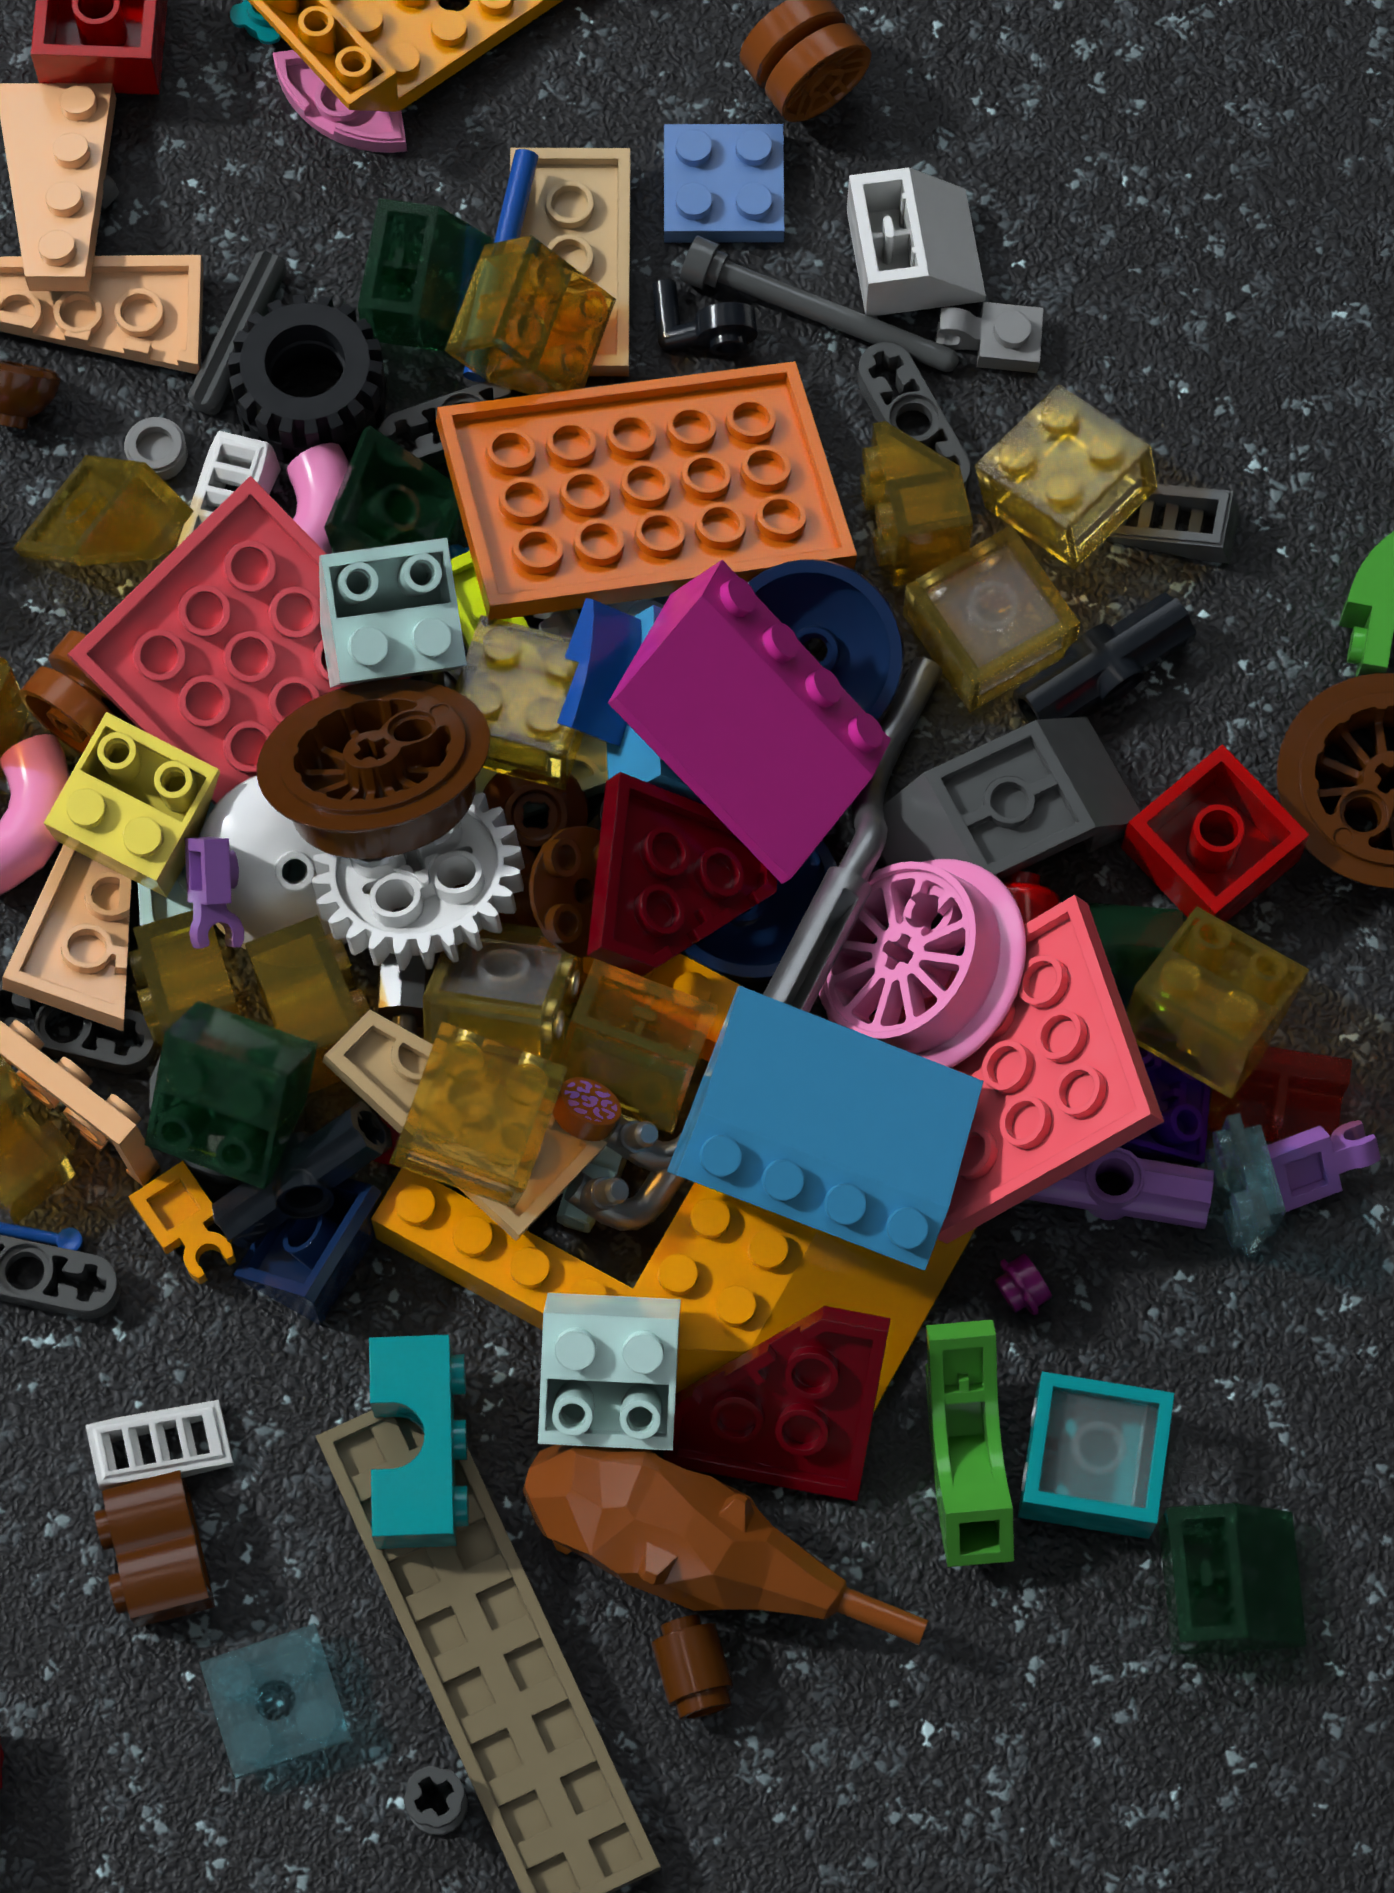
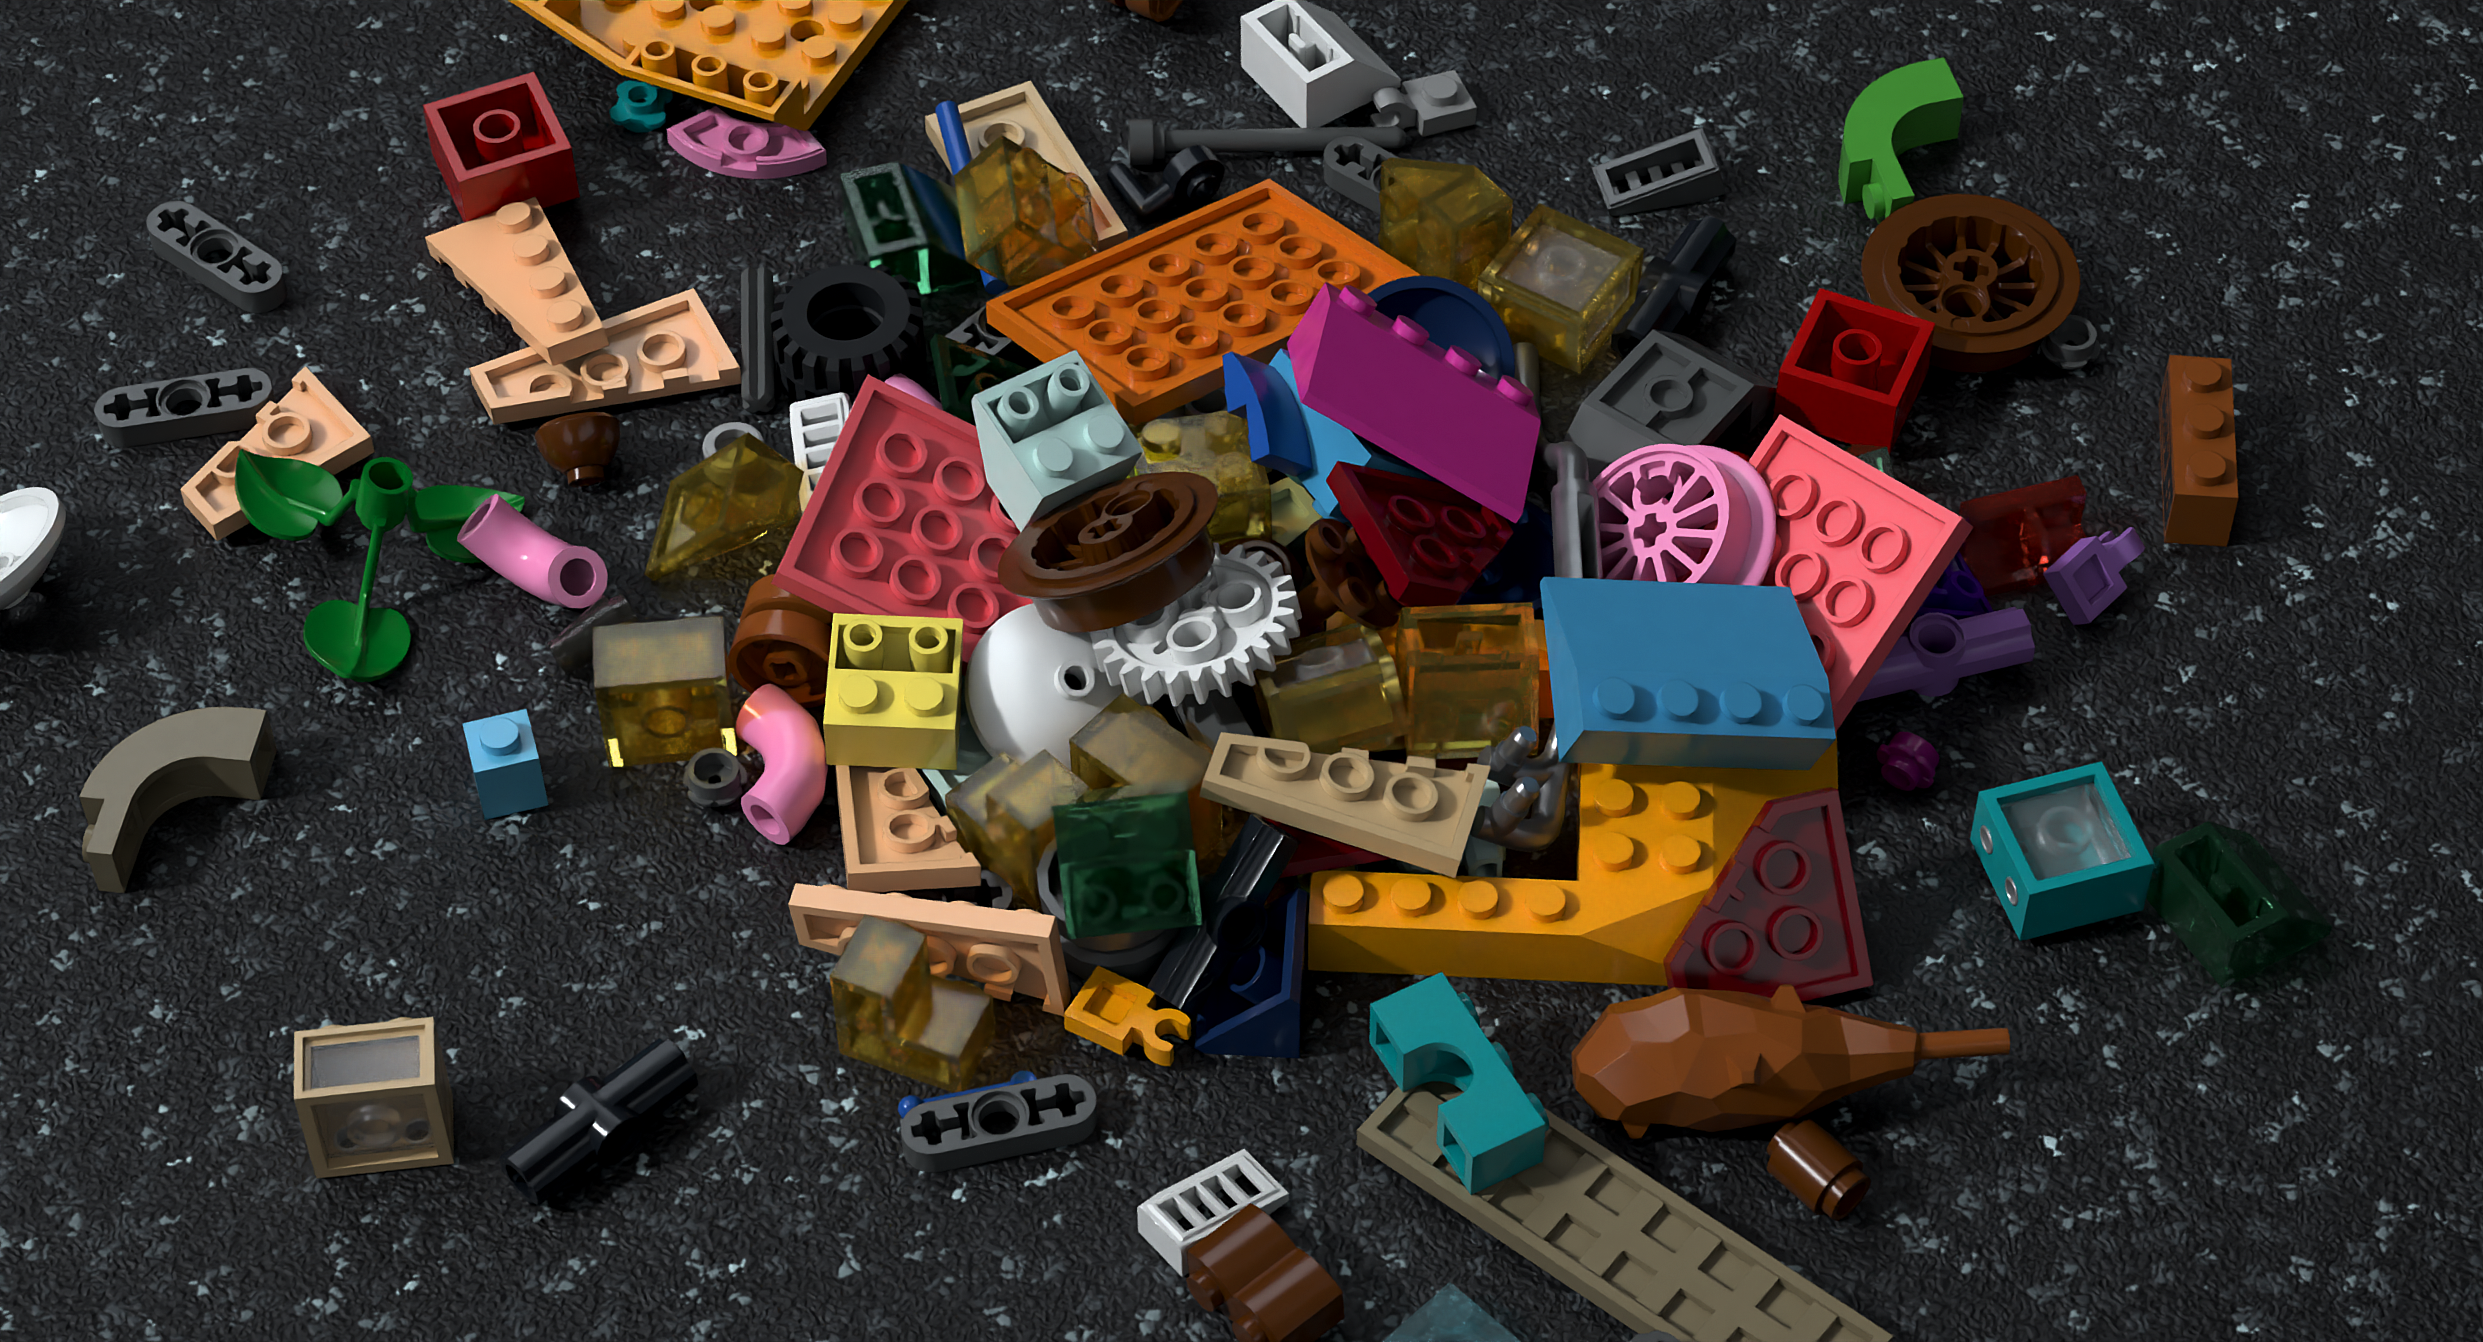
camera: 25 degrees left, 20 degrees down
(209, 878) = (1002, 714): medium lavender plate -> none
(478, 1115) = (1374, 765): clear yellow piece -> none
(586, 1109) = (1457, 745): dark orange tile -> none
(609, 1371) = (1606, 936): light aqua slope -> none
(724, 182) = (1121, 81): medium blue plate -> none
(967, 1444) = (1938, 896): bright green arch -> none
(1066, 476) = (1562, 157): clear yellow piece -> none
(1213, 1001) = (1947, 454): clear yellow slope -> none
(1246, 1171) = (2055, 596): clear light blue piece -> none

